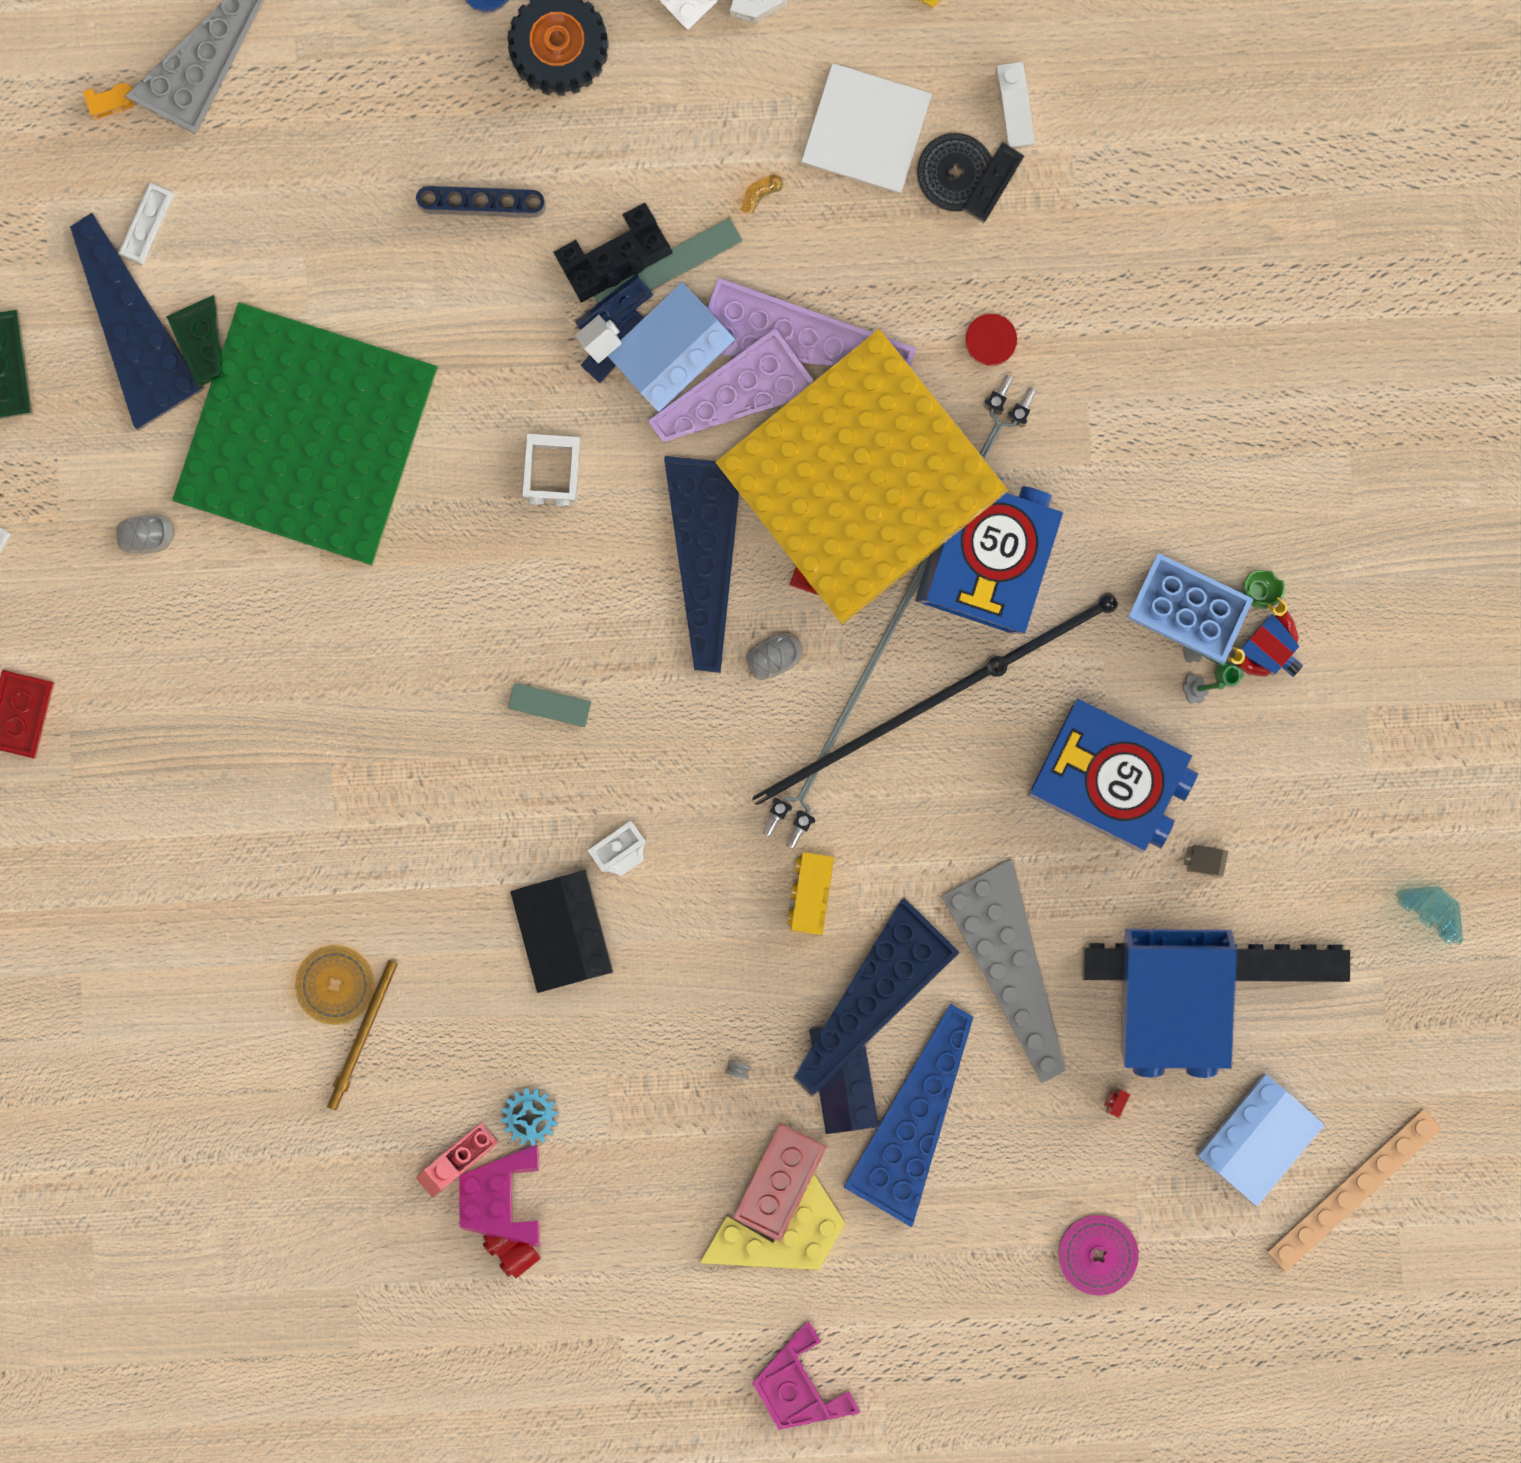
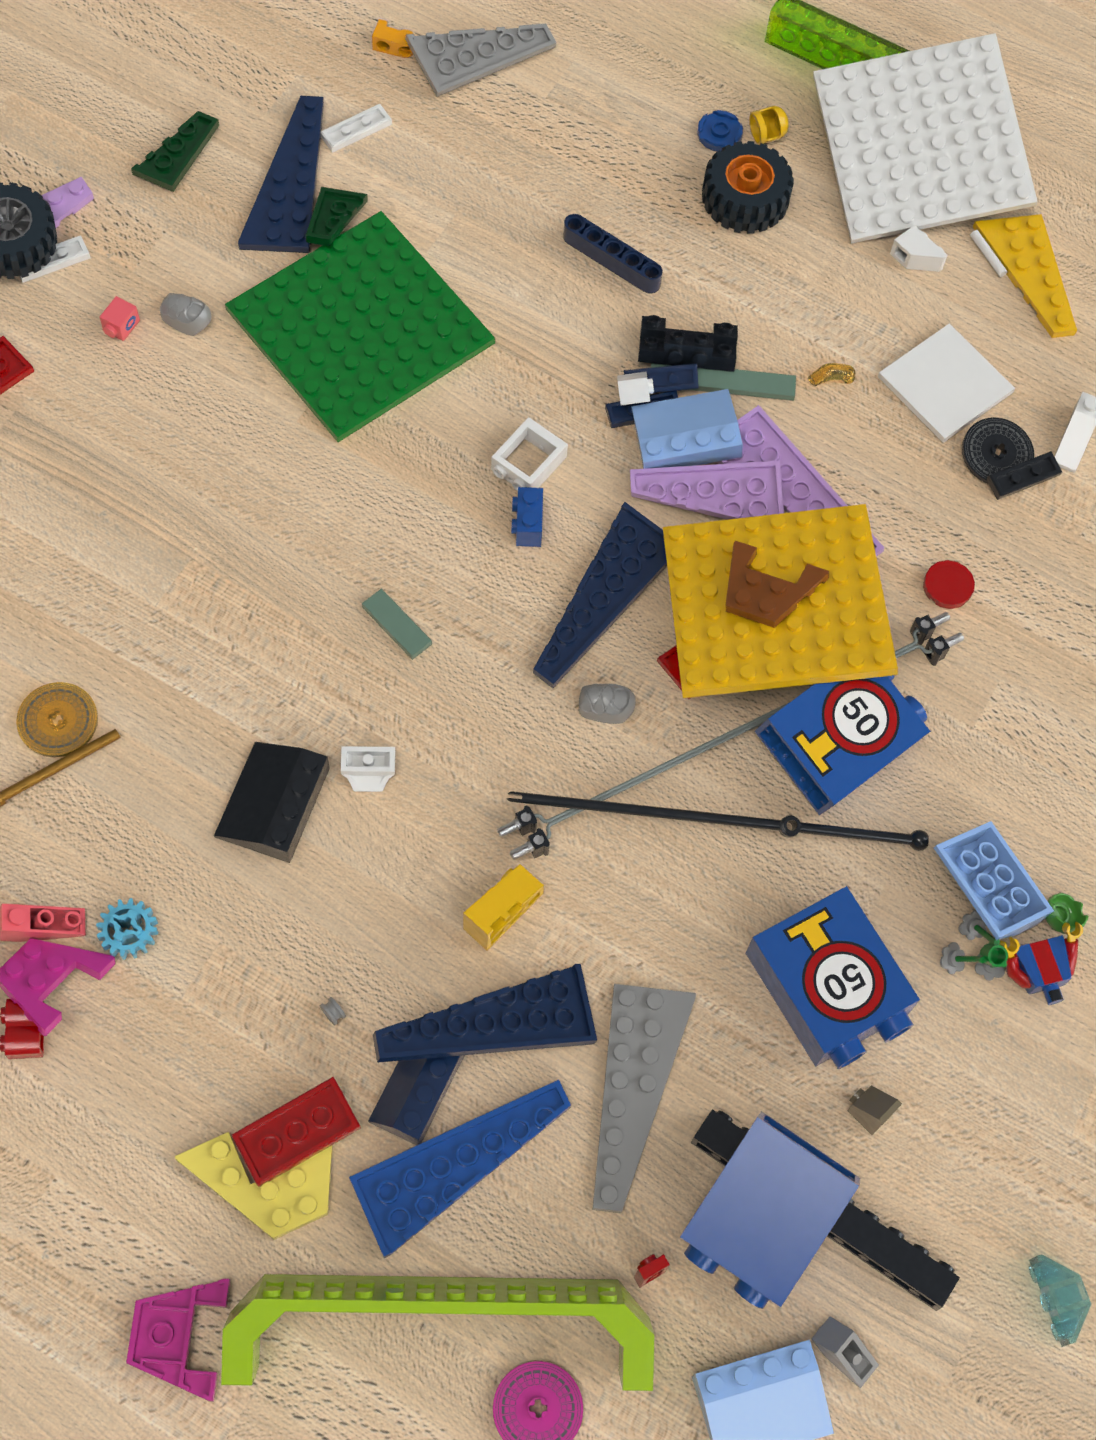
camera: 25 degrees right, 20 degrees down
(92, 583) = (119, 318): none -> coral brick
(592, 527) = (529, 516): none -> blue brick
(851, 487) = (762, 595): none -> dark orange wing
(975, 1230) = (283, 1293): none -> lime arch
(1297, 1061) = (845, 1351): none -> light grey slope

